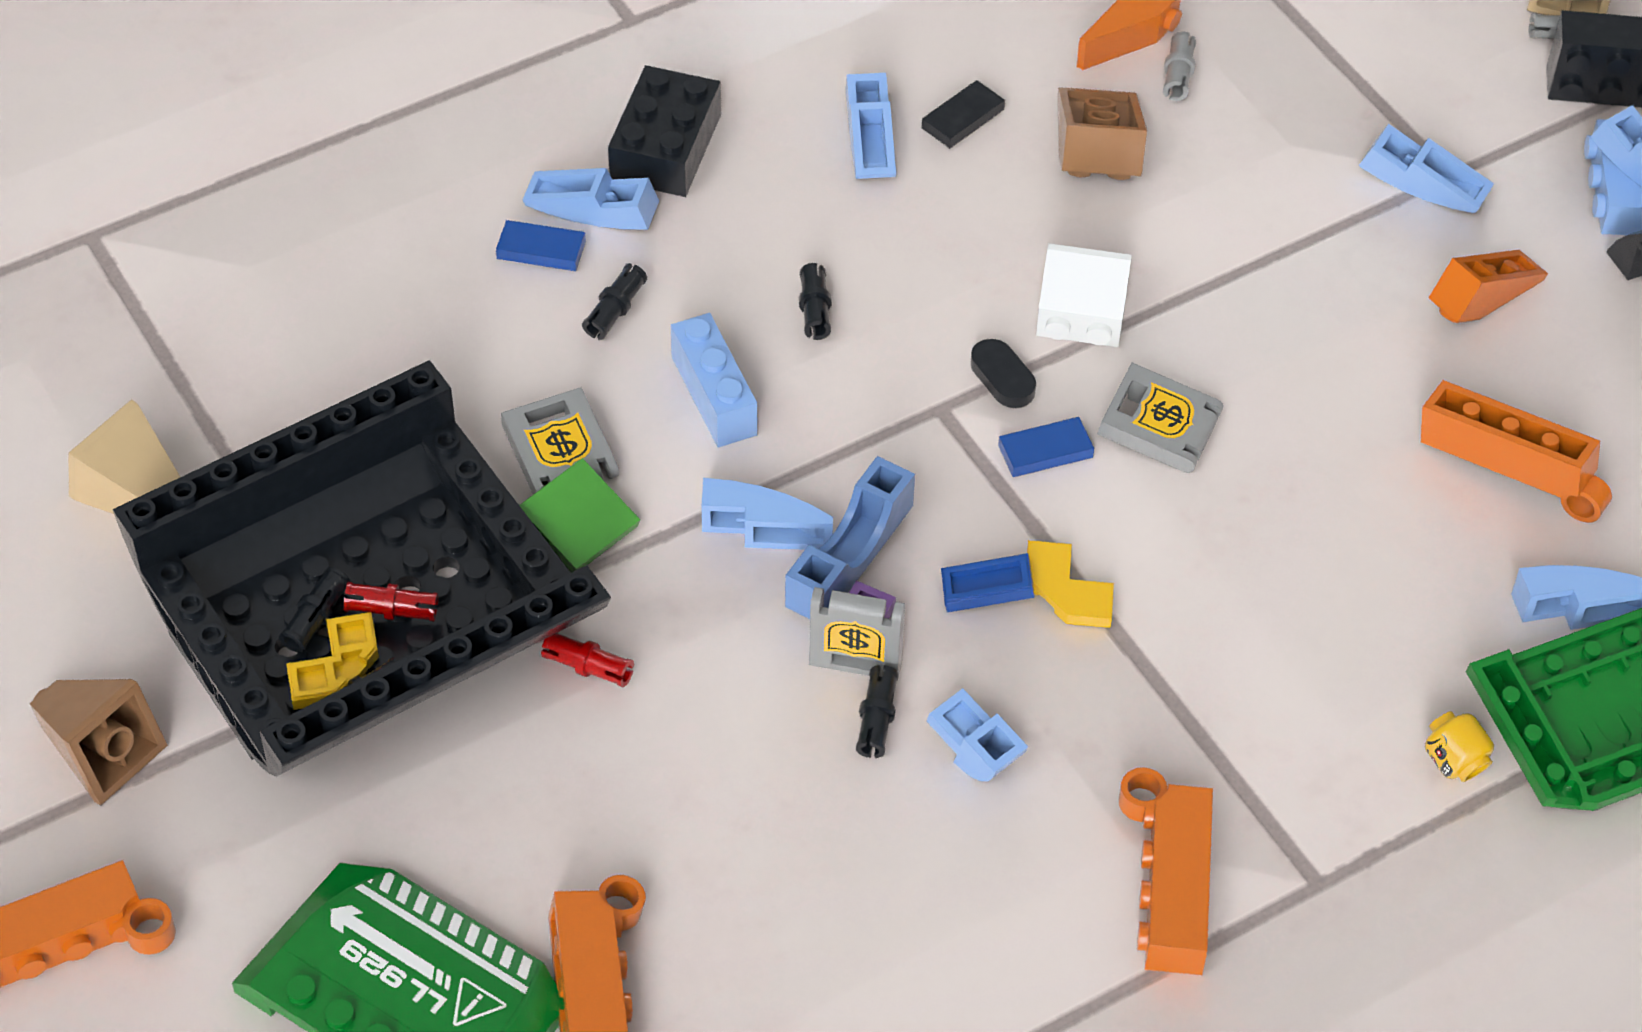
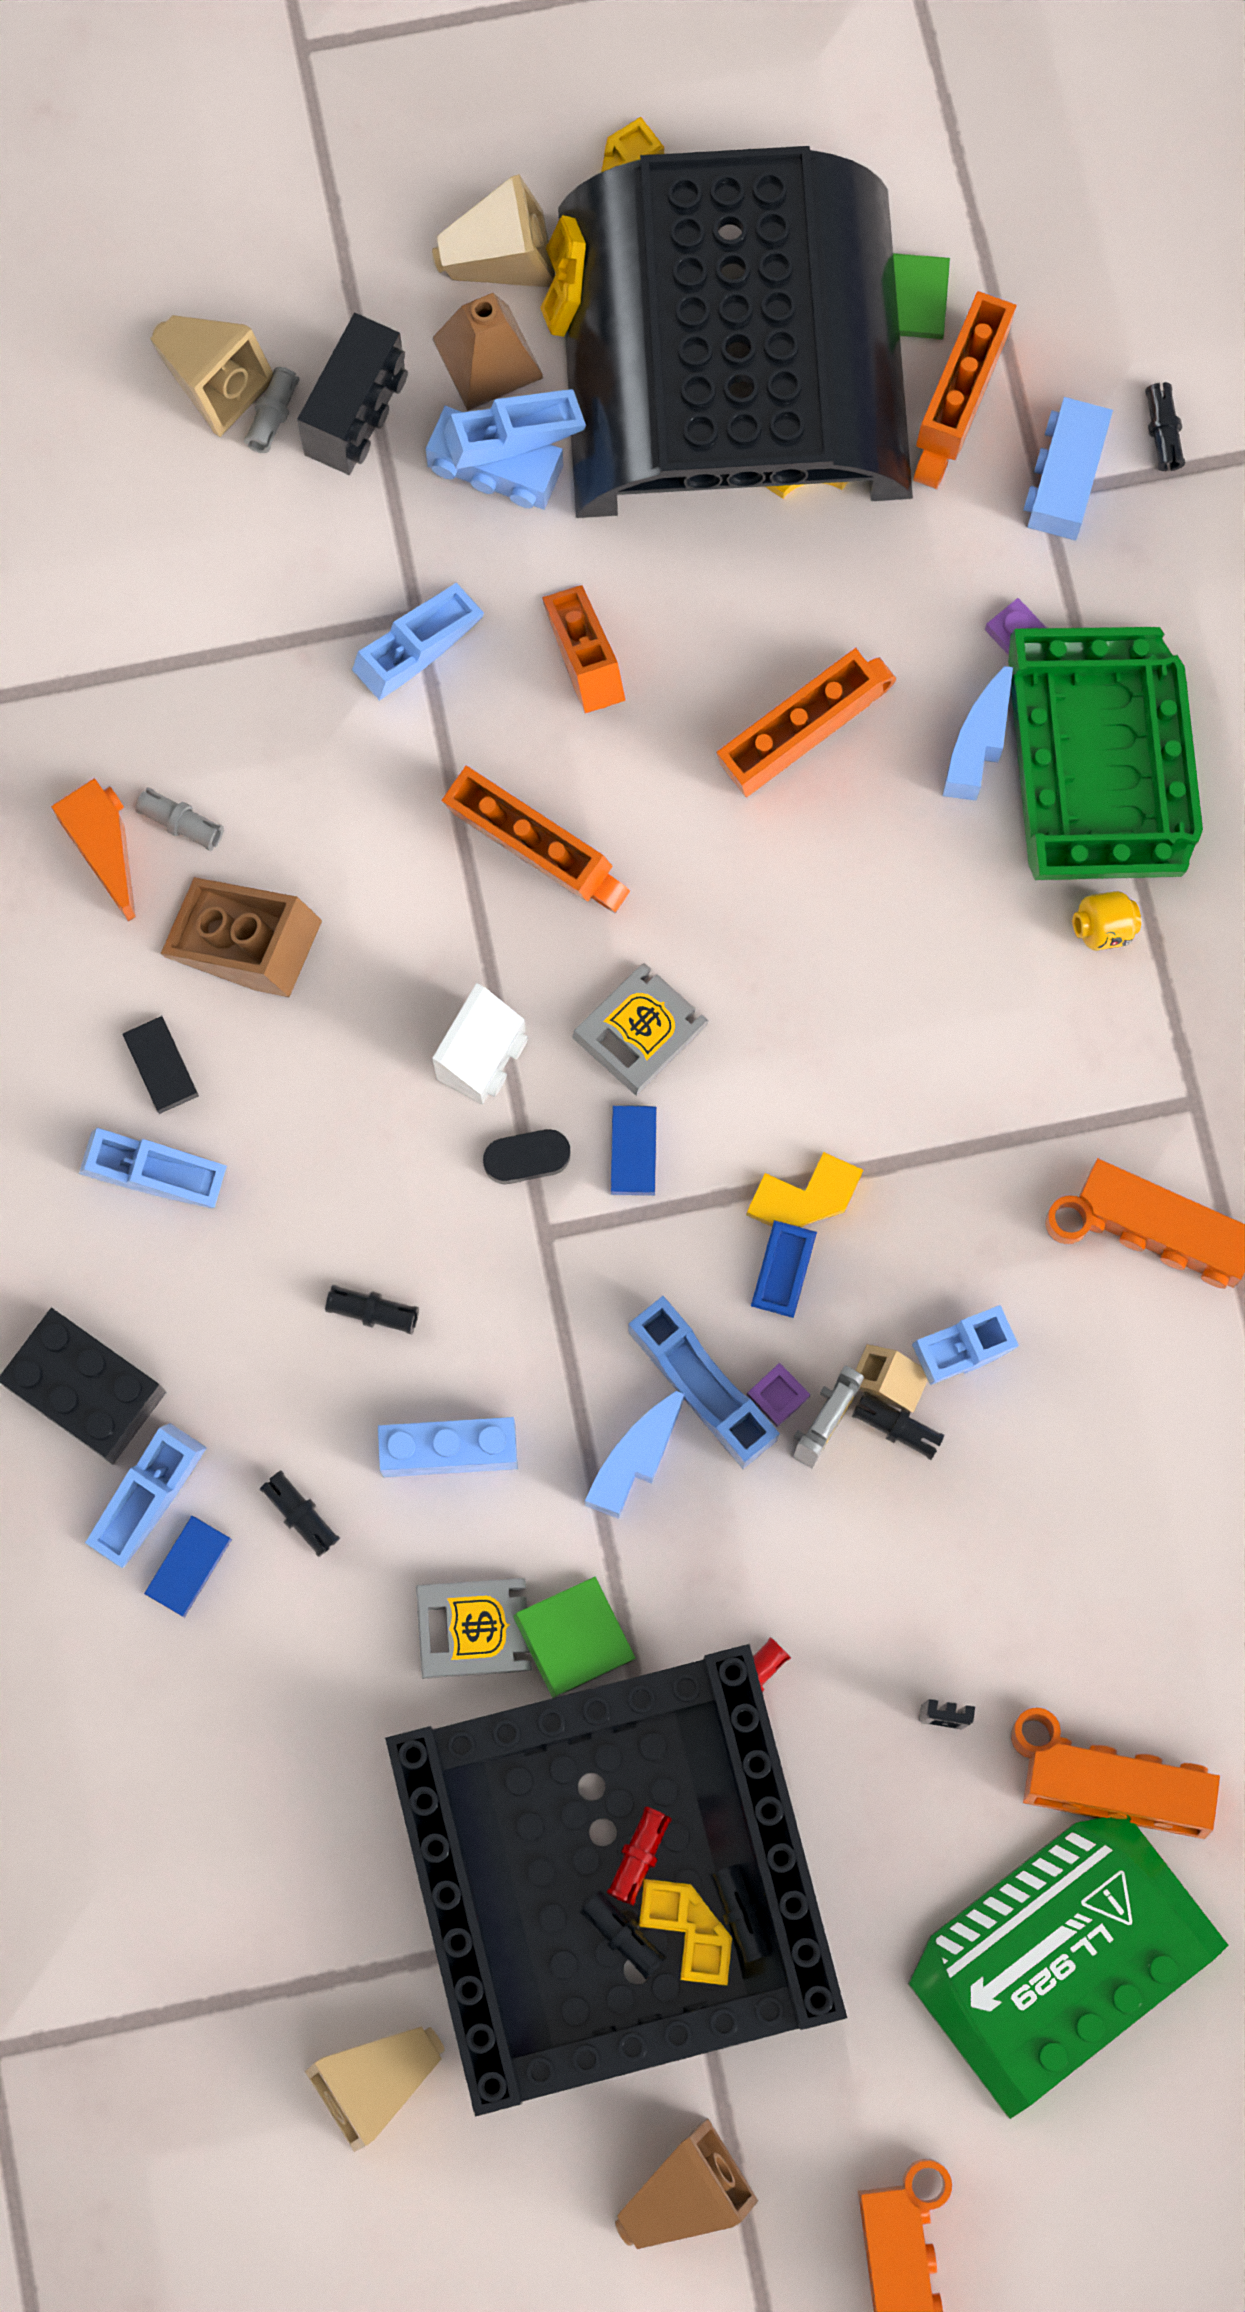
camera: 70 degrees left, 25 degrees up
(608, 807) = (946, 1715): none -> black tile
(918, 691) = (891, 1377): none -> tan brick
(1288, 286) = (534, 839): none -> orange hinge

